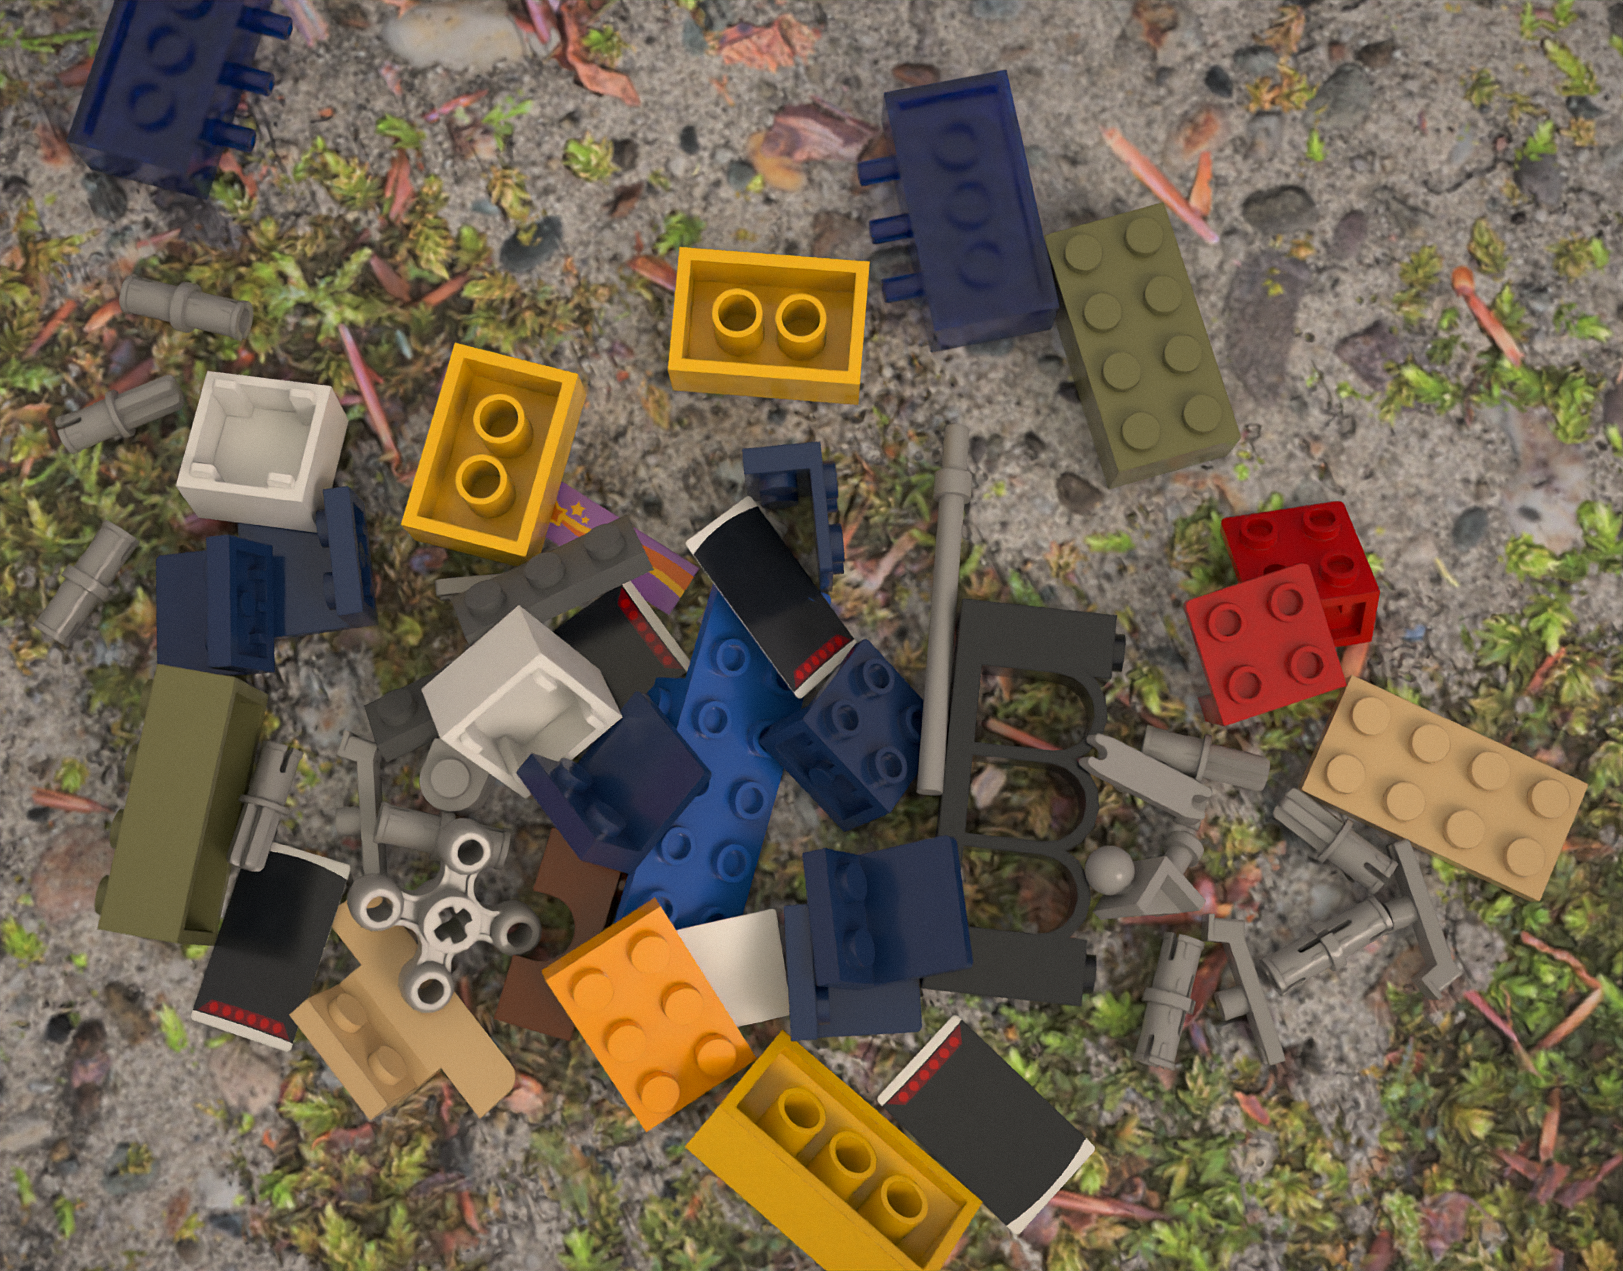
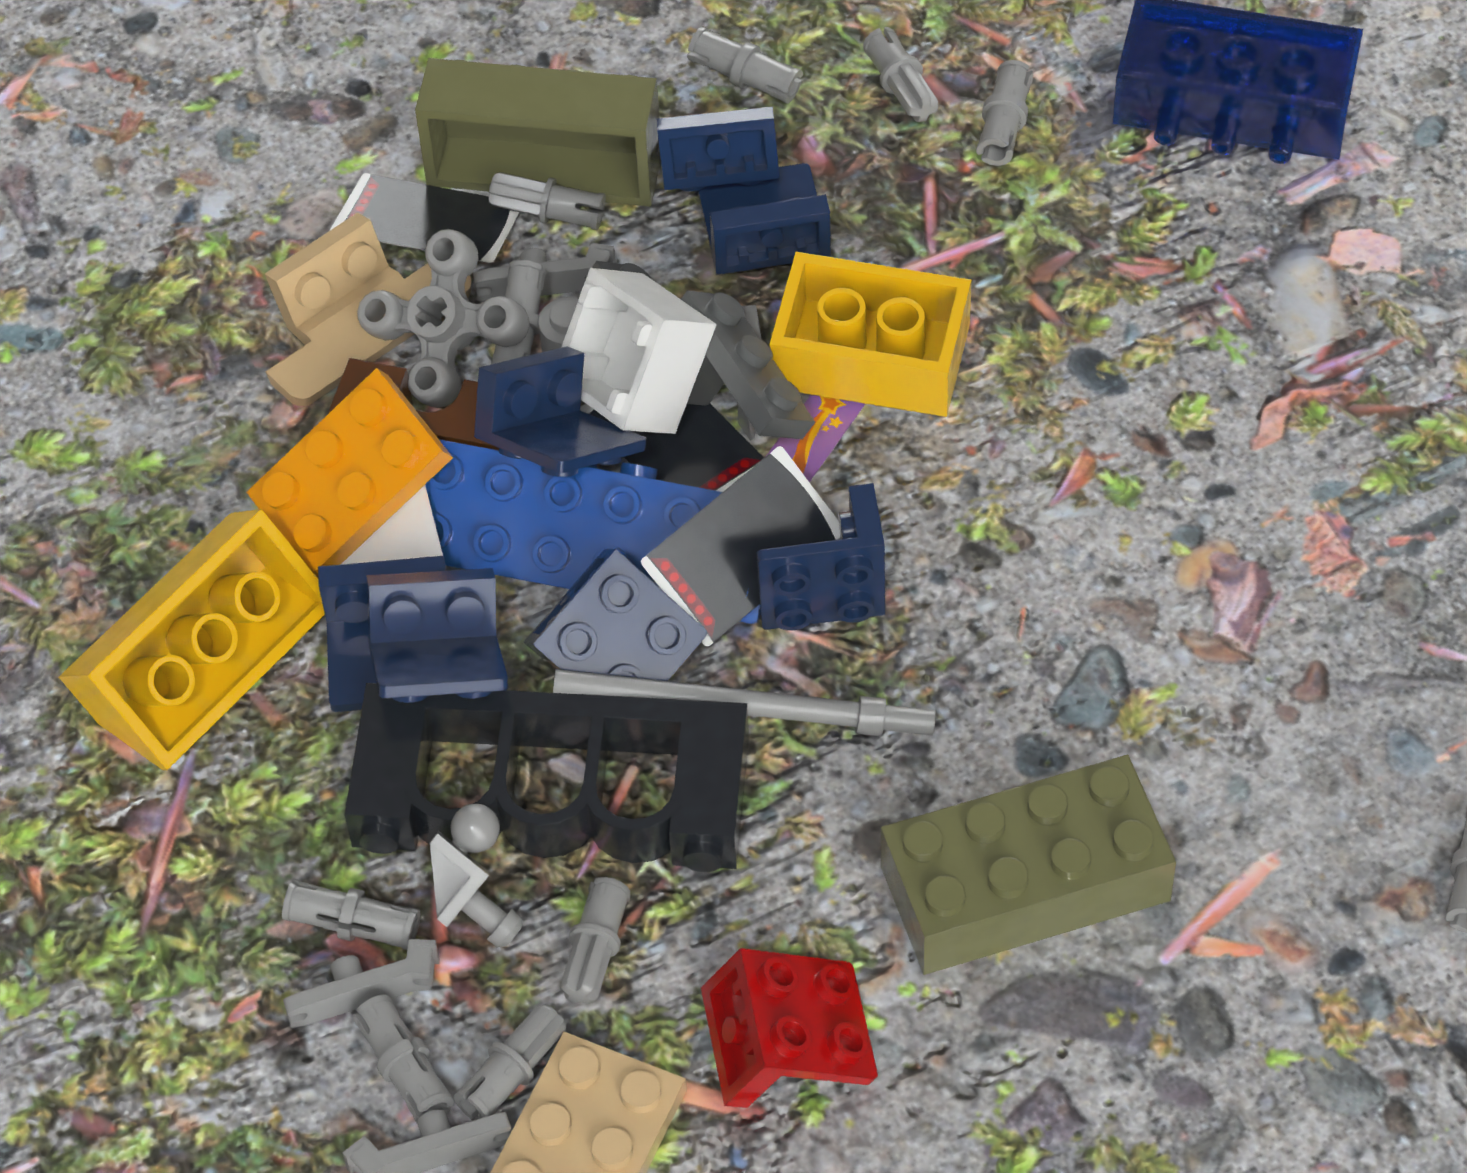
camera: 90 degrees right, 25 degrees down
(262, 451) = (868, 163): white container -> none
(768, 325) = (1018, 541): yellow brick -> none
(963, 212) = (1162, 694): clear blue piece -> none
(986, 1124) = (240, 775): black sticker -> none
(1148, 780) = (567, 882): light grey piece -> none
(1263, 645) = (704, 962): red bracket -> none

